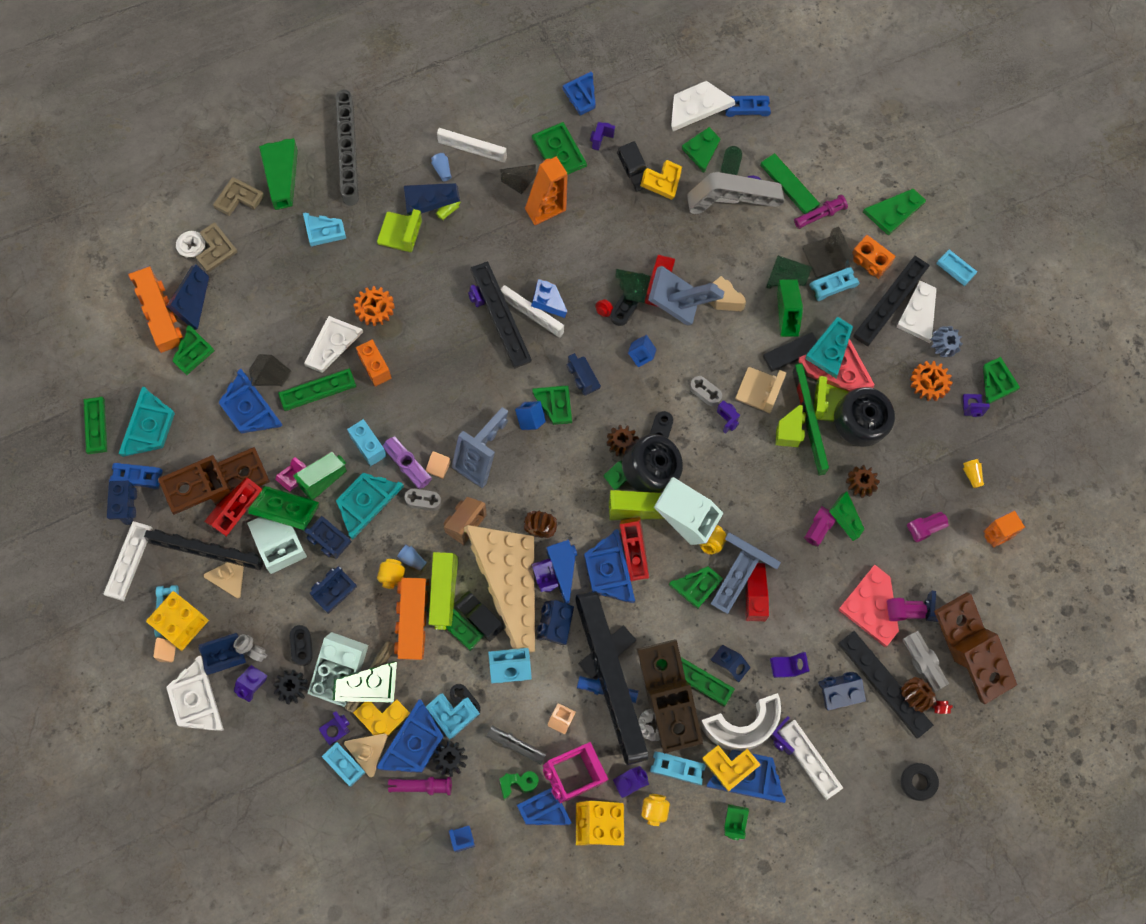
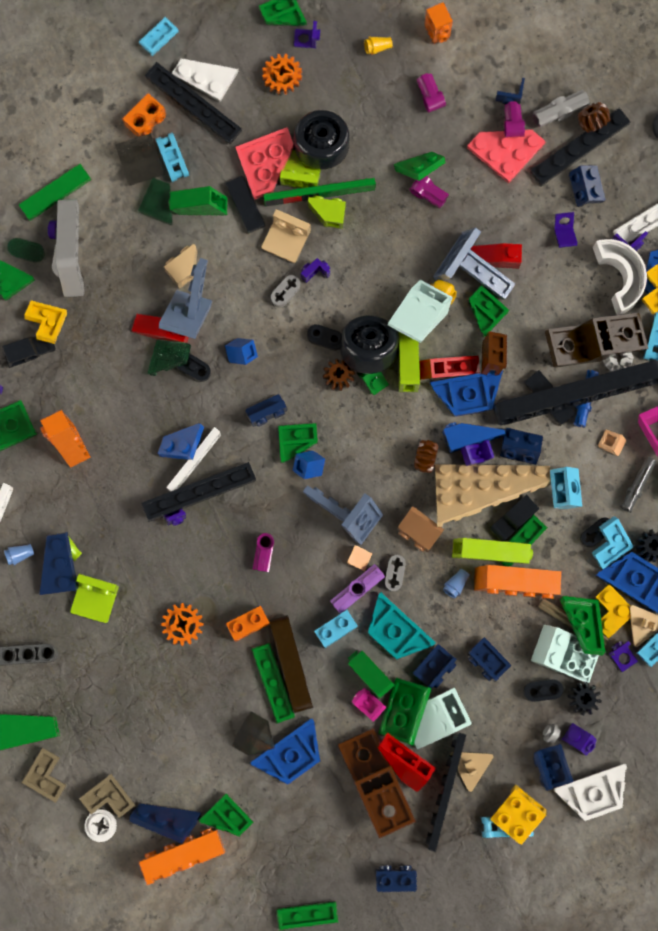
camera: 85 degrees left, 10 degrees up
(127, 562) = (454, 869): white tile -> none
(136, 475) = (365, 868): blue plate -> none
(147, 425) = (309, 858): teal wing -> none
(164, 650) = (549, 826): light nougat slope -> none
(243, 643) = (545, 745): light grey plate -> none
(323, 229) = (89, 681): medium azure wing -> none
(331, 343) = (223, 669): white wing -> none
(334, 403) = (291, 664): none -> dark brown beam
(390, 573) = (473, 603): yellow head -> none
(441, 376) = (263, 555): none -> magenta piece
(518, 177) = (36, 472): clear smoke slope -> none
(604, 308) = (192, 387): red plate -> none
(651, 590) = (494, 353): none -> reddish brown hinge
(704, 682) = (580, 307): green tile -> none
(730, 661) = (559, 285): dark blue bracket -> none
(828, 209) = (86, 155): magenta pin -> none
(831, 347) = (248, 165): teal wing -> none
(866, 475) = (383, 154): reddish brown gear -> none
(894, 211) = (90, 89): green wing -> none
(942, 707) = (604, 97): red plate -> none
(946, 341) = (241, 54): sand blue gear -> none
(975, 648) = (551, 62): reddish brown bracket -> none

